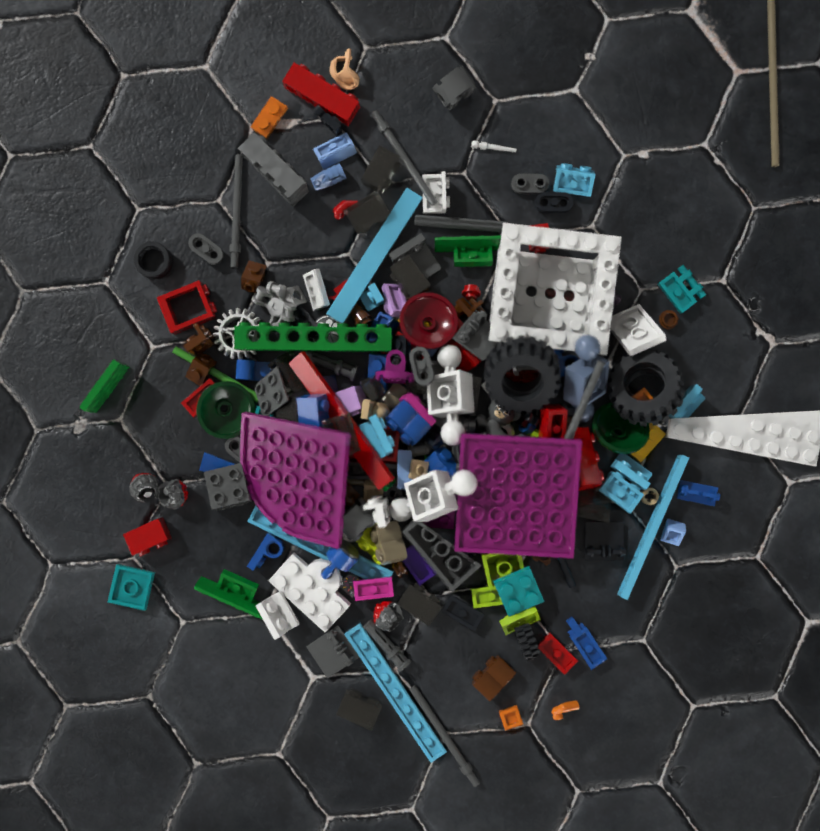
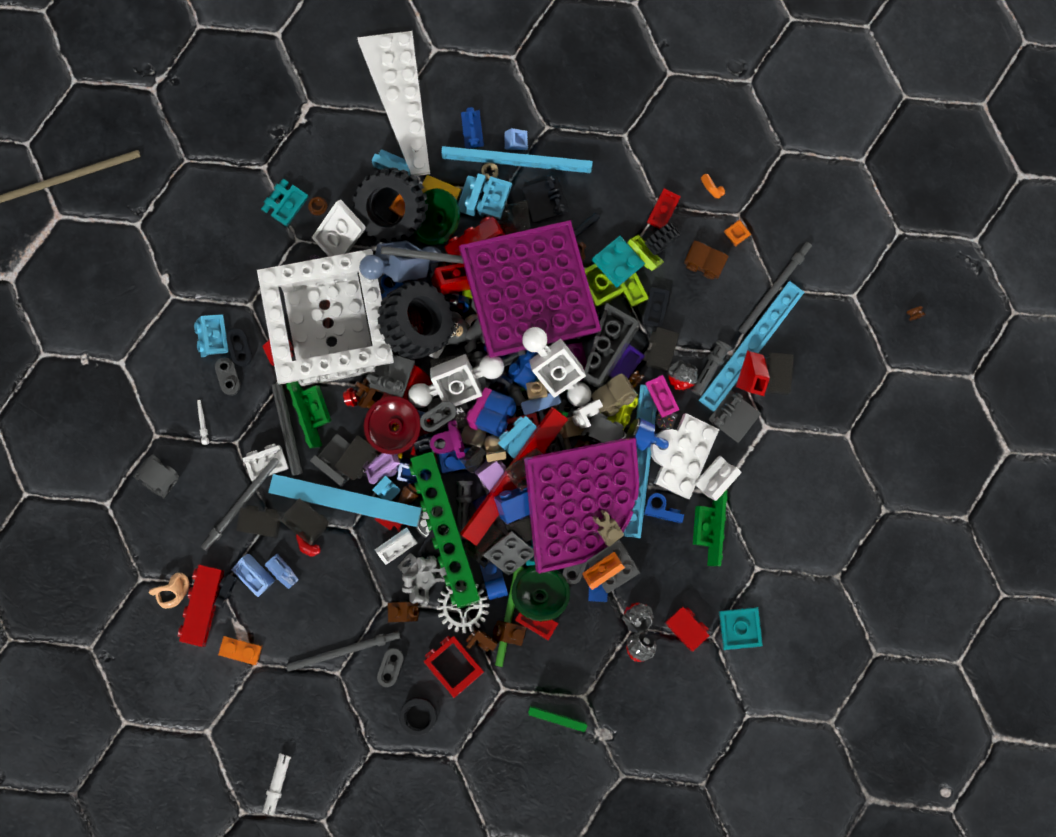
camera: 115 degrees left, 5 degrees down
(130, 109) = (273, 793): none -> white pin
(223, 475) = (603, 570): none -> orange plate
(262, 493) = (609, 529): none -> dark tan plate
(274, 169) = (290, 626): dark grey wedge -> none
(365, 685) = (754, 374): none -> red slope
(585, 643) = (645, 186): blue hinge -> none

